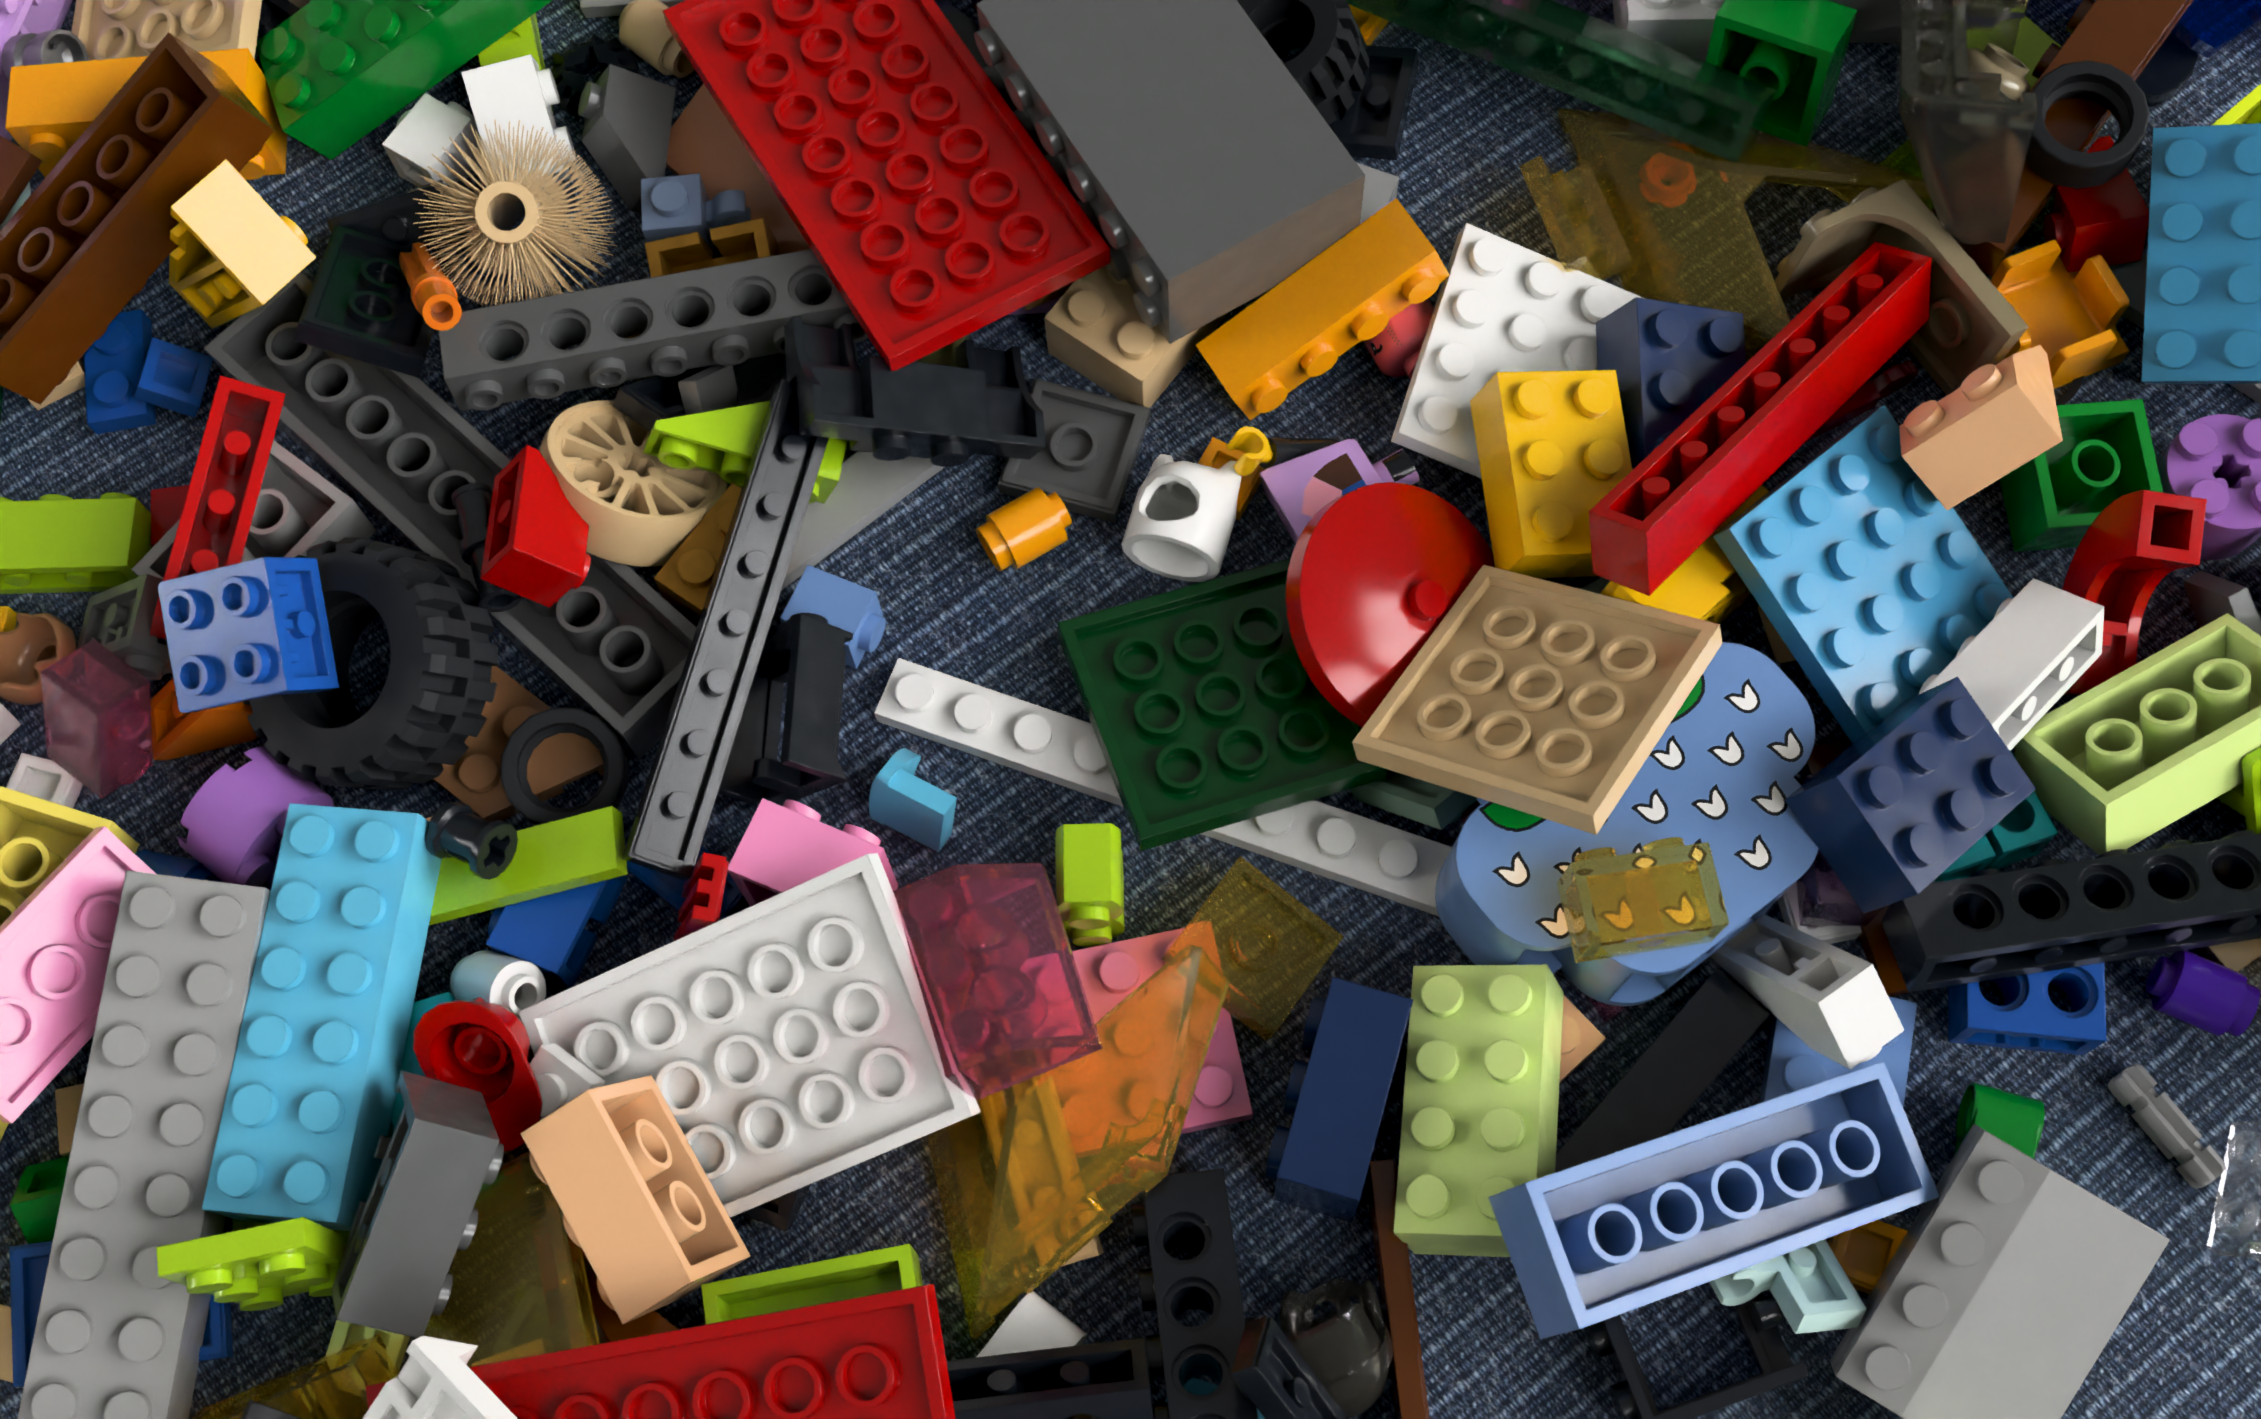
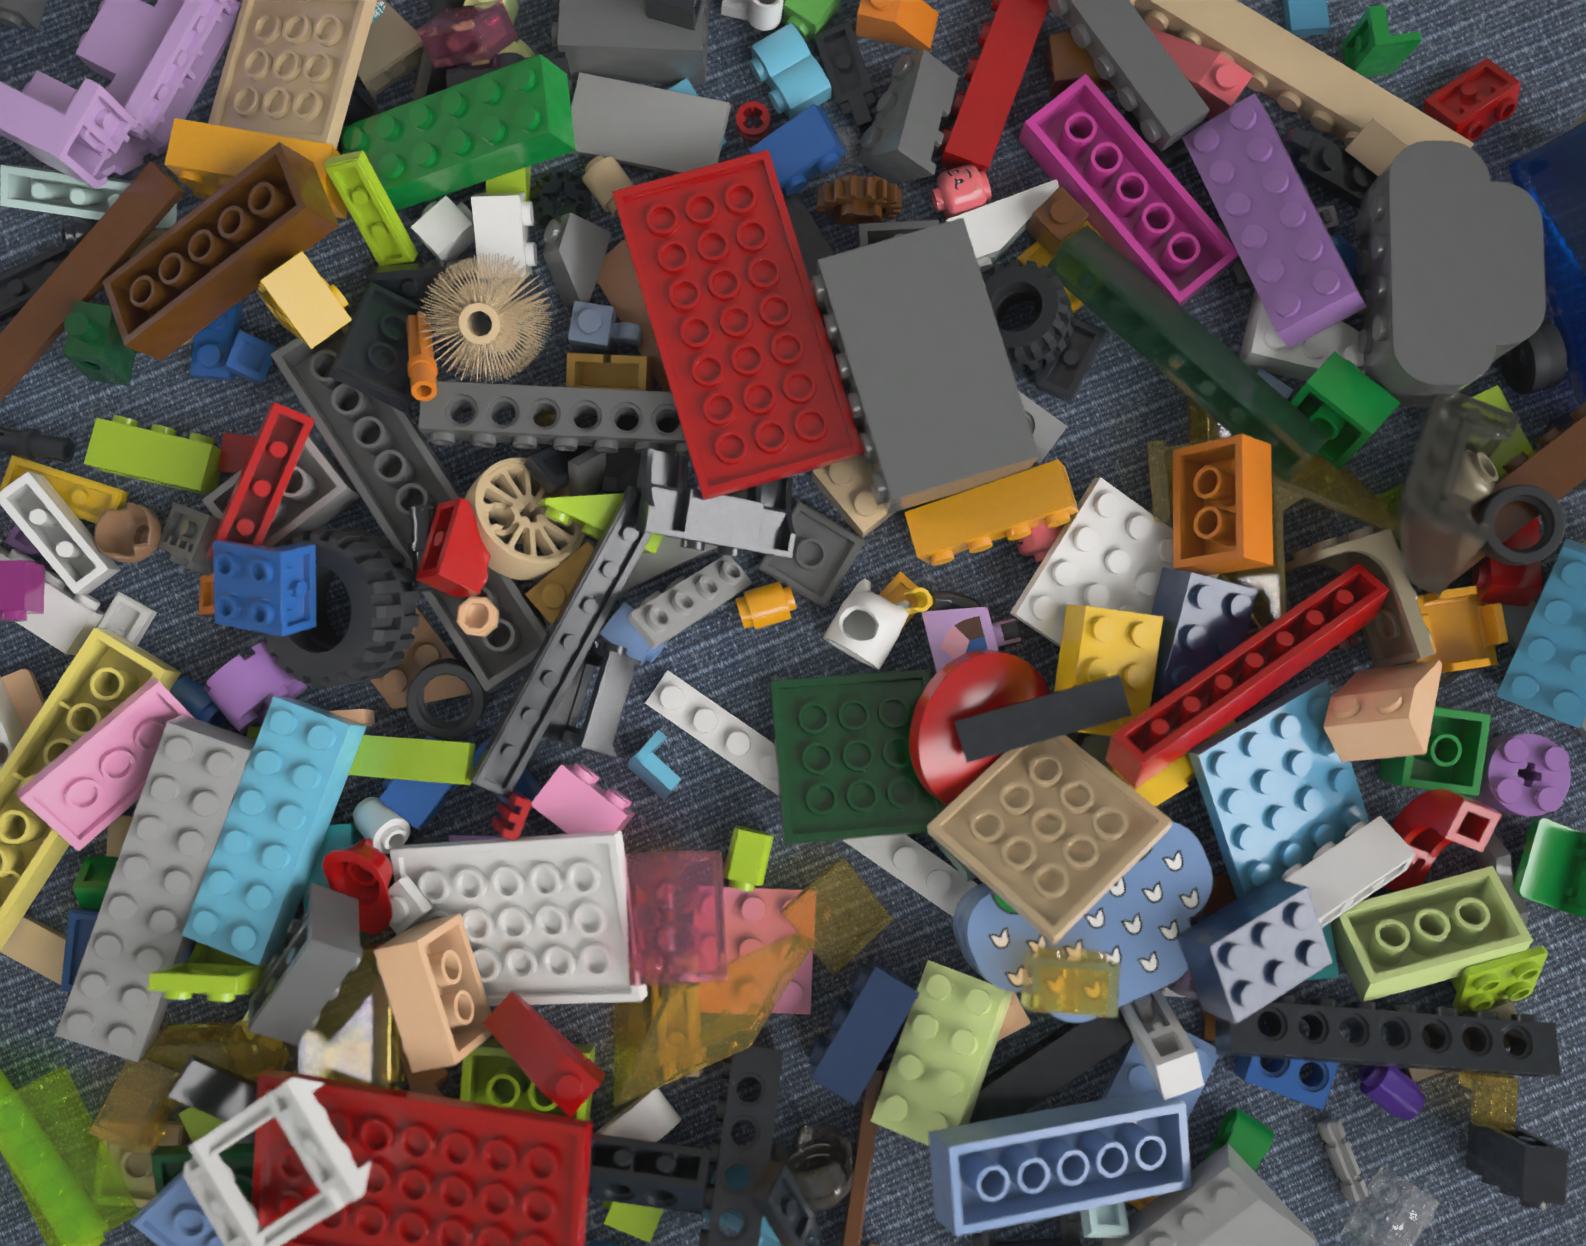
camera: 10 degrees right, 15 degrees up
(42, 48) = (199, 103): flat silver wheel -> none
(97, 718) = (167, 593): clear pink brick -> none
(318, 126) = (371, 208): none -> lime tile
(480, 843) = (380, 741): black bush -> none
(587, 623) = (477, 616): none -> light nougat tile
(827, 1243) = (544, 1054): none -> red slope
(899, 532) = (688, 600): none -> light grey bracket
(1478, 539) = (1043, 718): none -> black tile
(1654, 206) = (1222, 506): none -> orange brick

